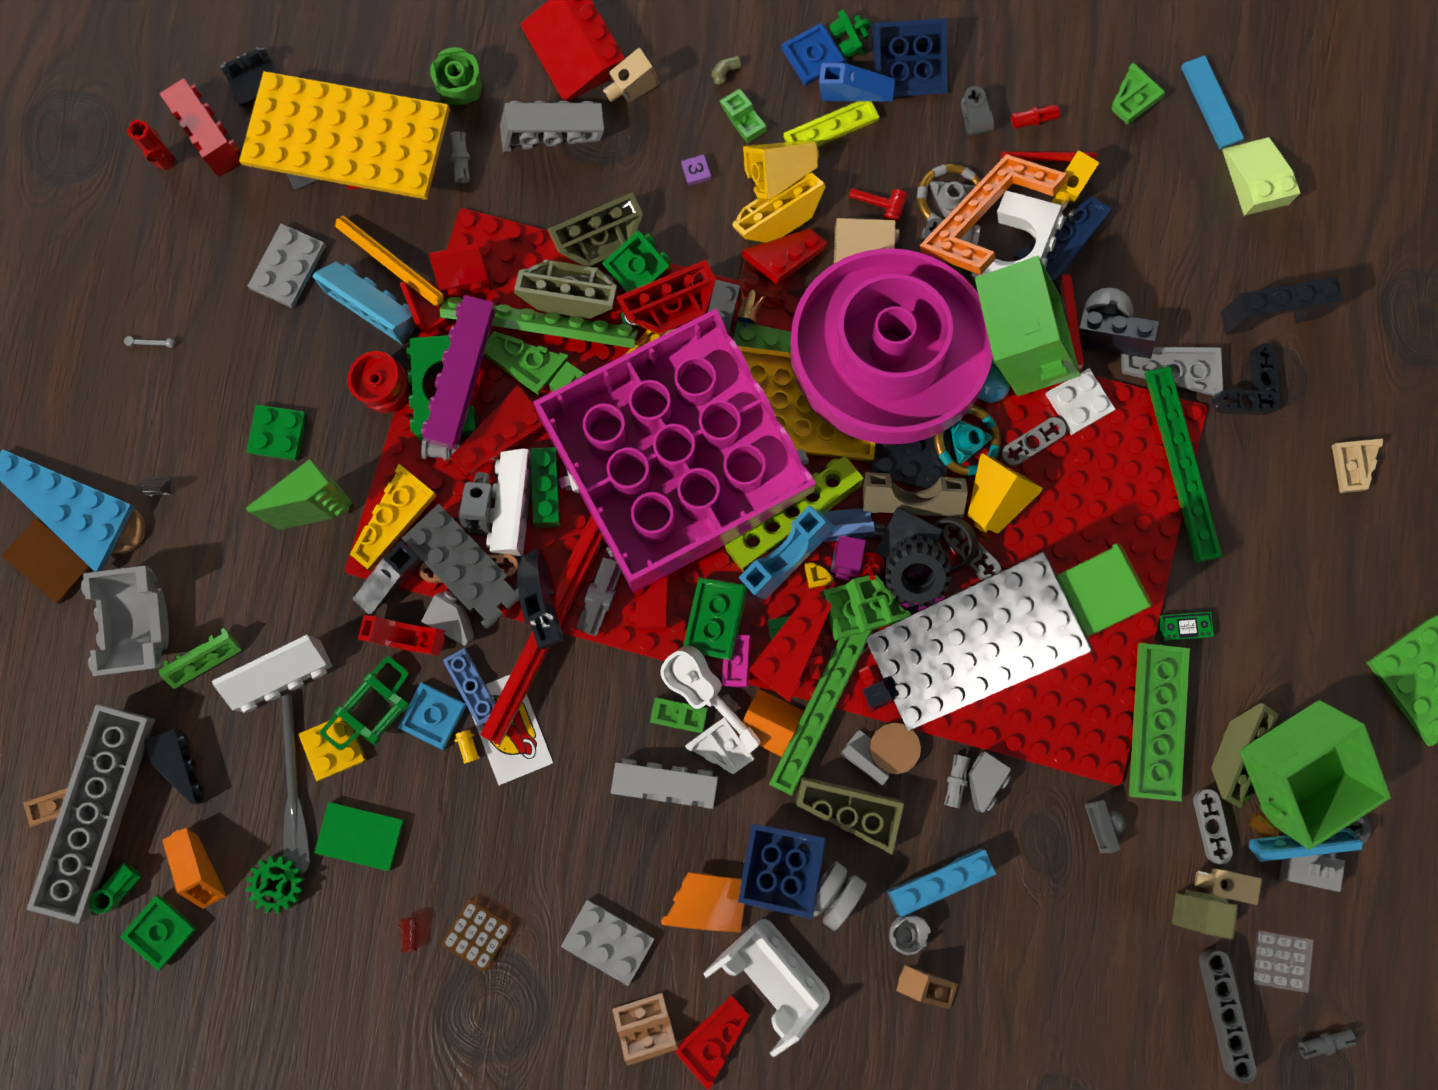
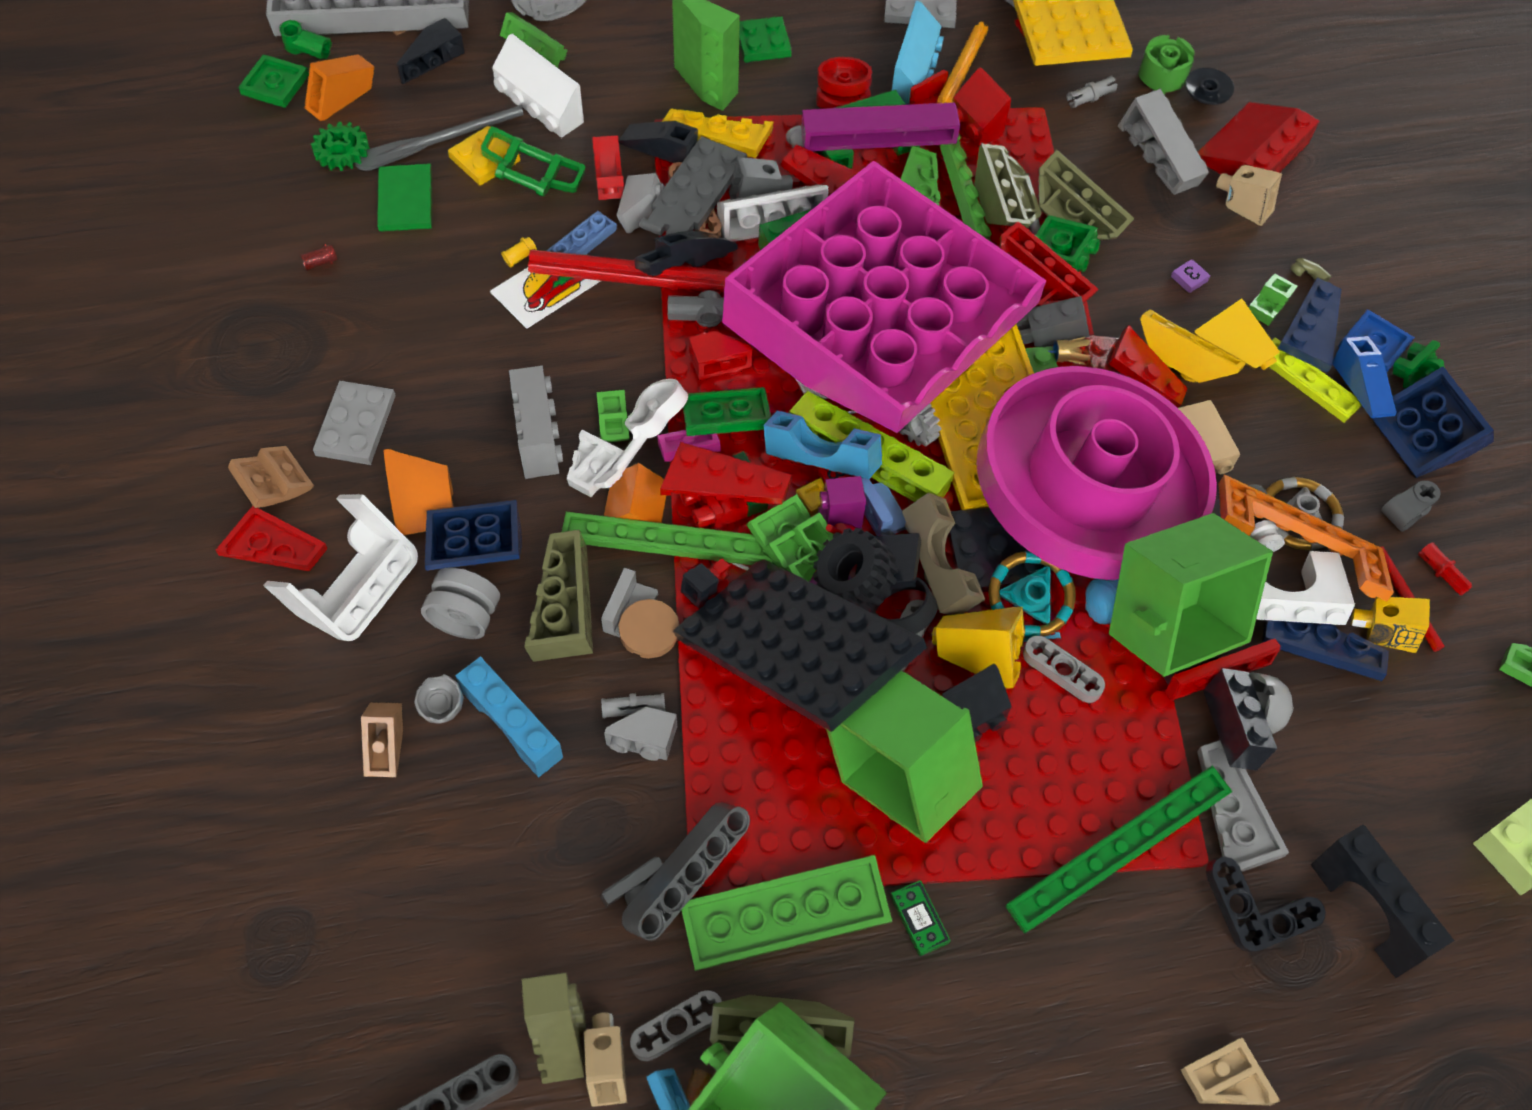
camera: 70 degrees right, 20 degrees down
(432, 716) = (540, 219): dark azure tile -> none
(476, 935) = (333, 312): tile -> none
(494, 41) = (1209, 86): none -> black dish
(785, 97) = (1315, 326): none -> dark blue wing
(893, 205) = (1256, 458): red piece -> none
(1052, 525) = (984, 698): none -> black slope
(1080, 401) = (1137, 707): white plate -> none
(1113, 784) = (672, 877): none -> dark grey beam

